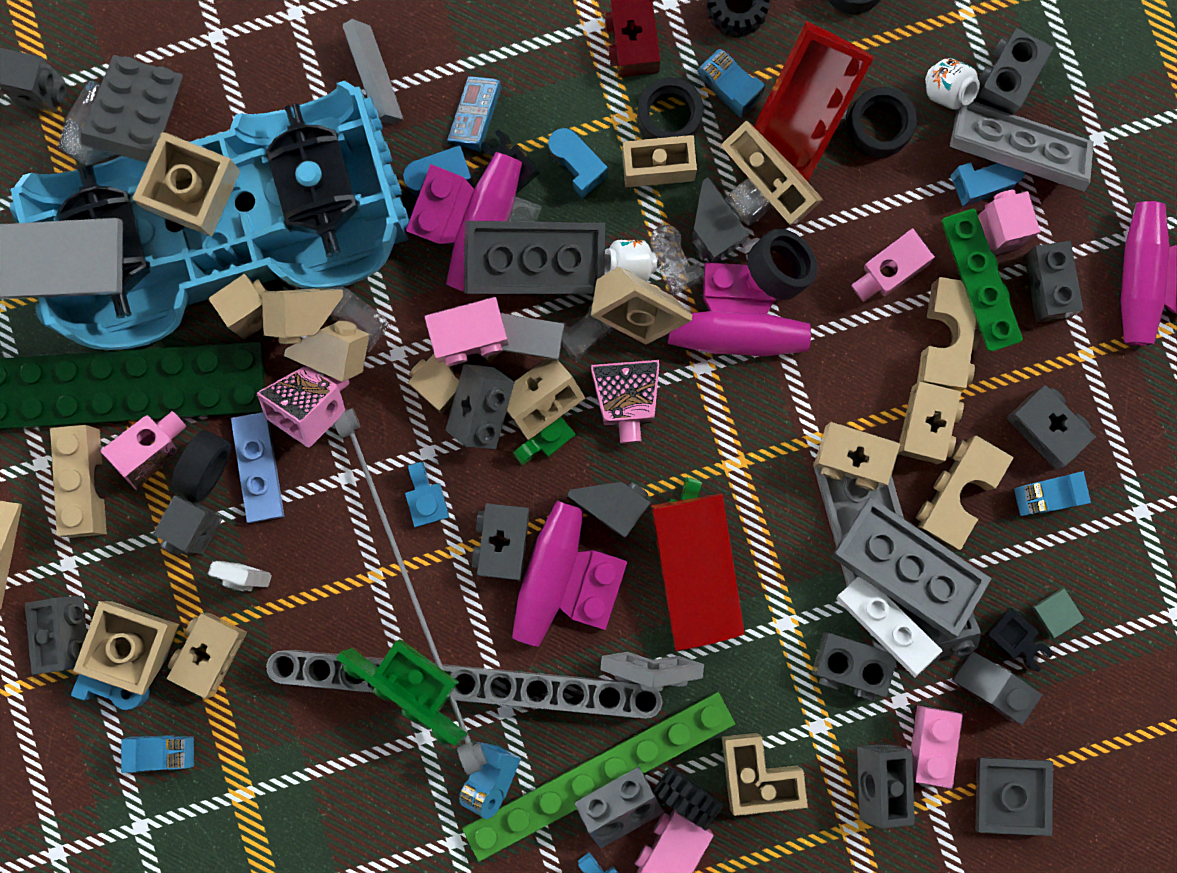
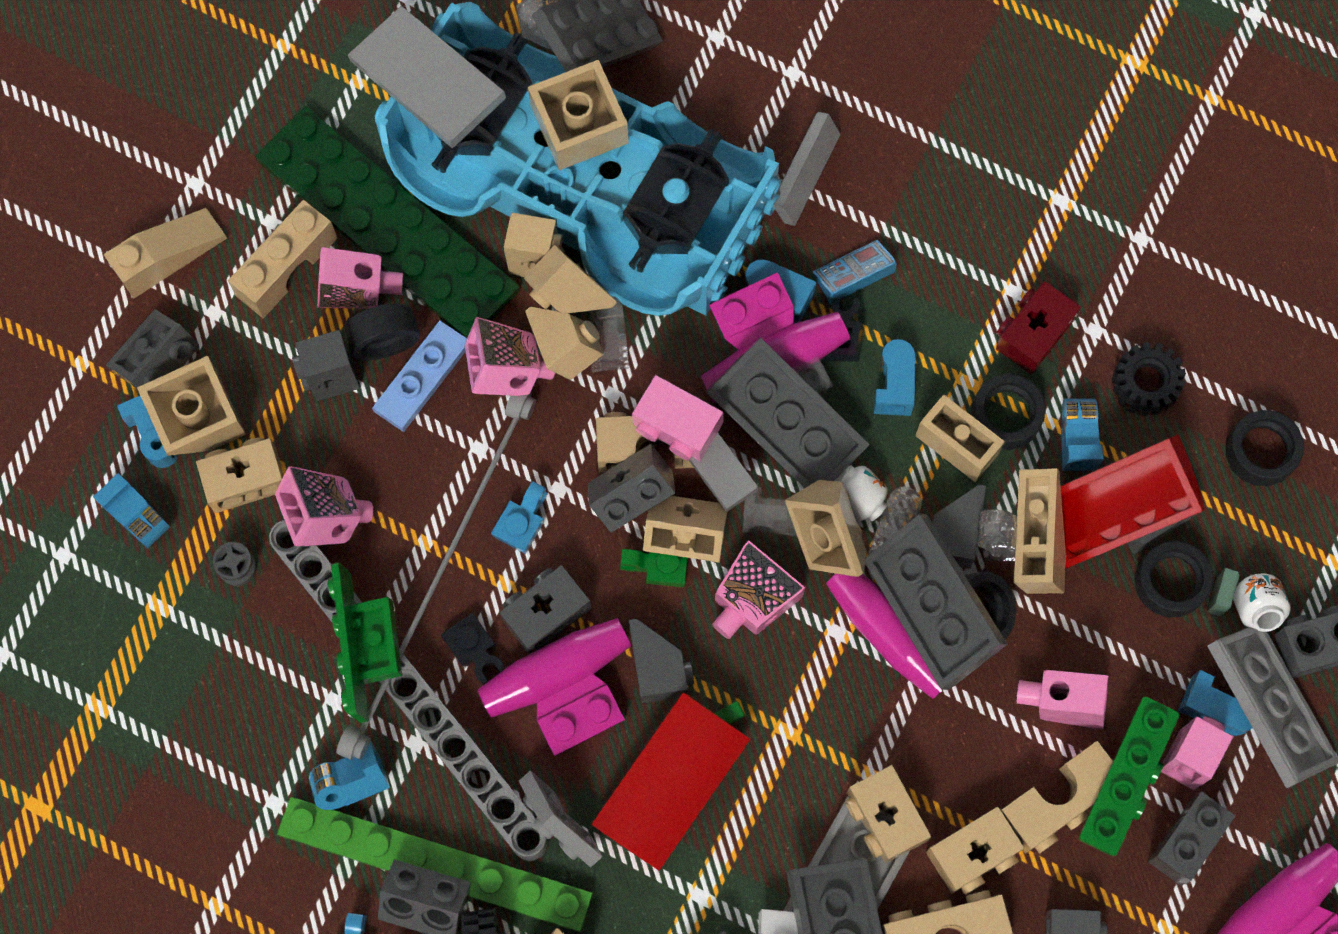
camera: 45 degrees right, 10 degrees down
(239, 576) = (325, 437): white plate -> none
(258, 720) = (230, 556): none -> dark grey wheel
(284, 625) = (320, 507): none -> bright pink torso
(475, 612) = (470, 645): none -> black plate
(755, 287) = (935, 602): none -> dark grey plate
(922, 100) = (1223, 592): none -> sand green tile

